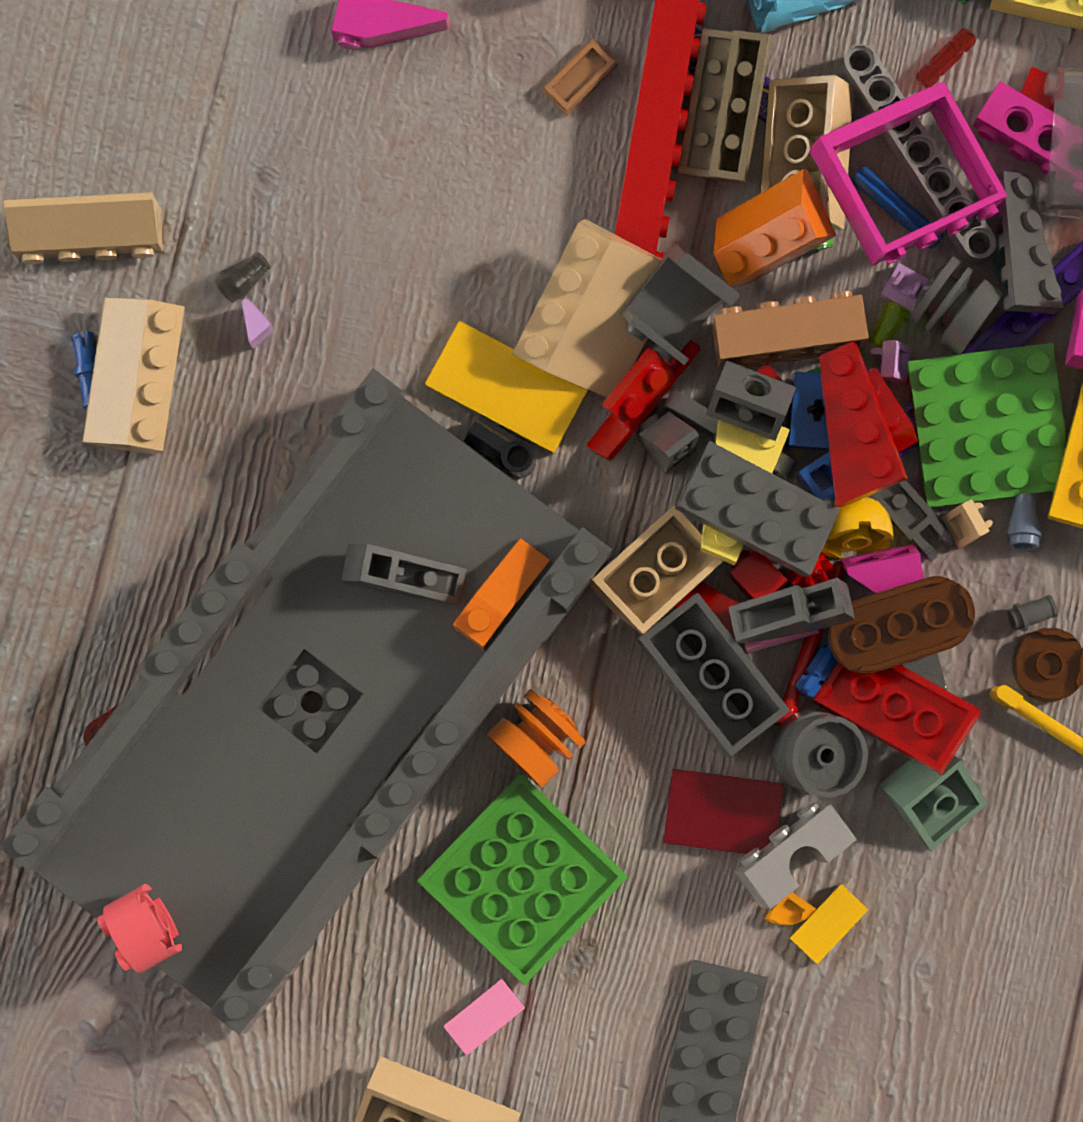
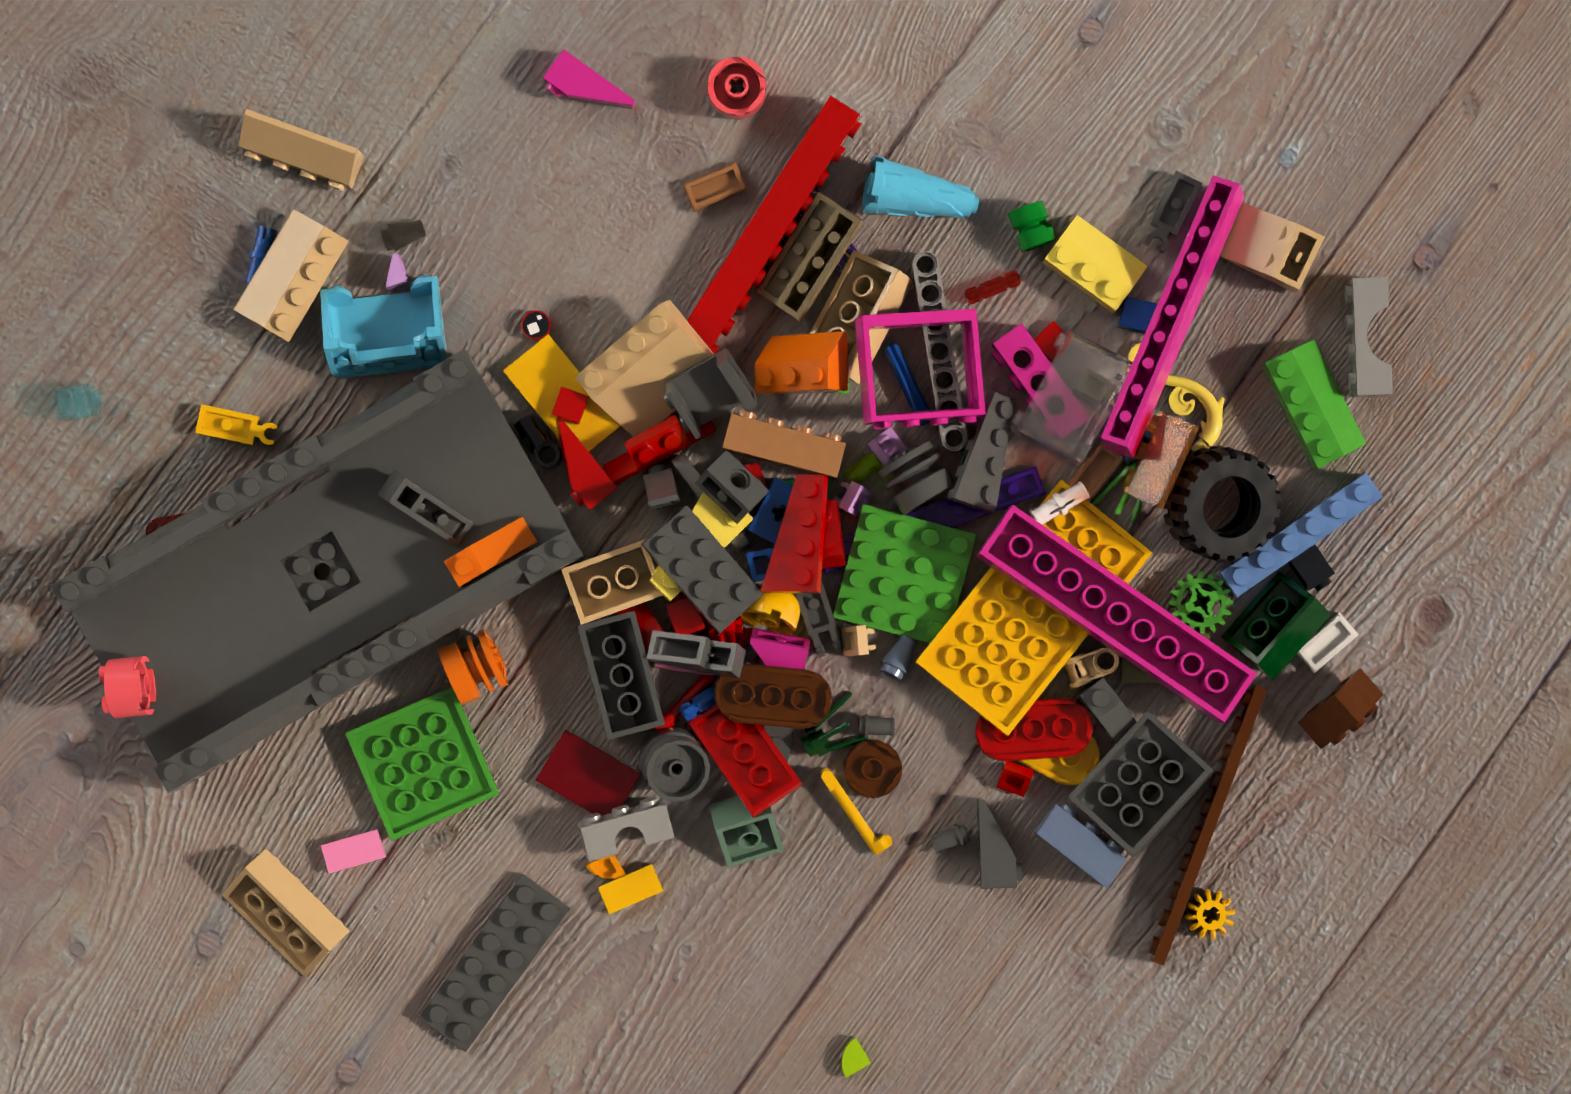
camera: 20 degrees right, 5 degrees up
(136, 578) = (232, 426): none -> yellow plate
(269, 395) = (383, 330): none -> medium azure windscreen
(440, 317) = (536, 325): none -> black tile
(520, 390) = (570, 405): none -> red tile
(565, 457) = (583, 473): none -> red slope
(970, 658) = (816, 740): none -> dark green plant

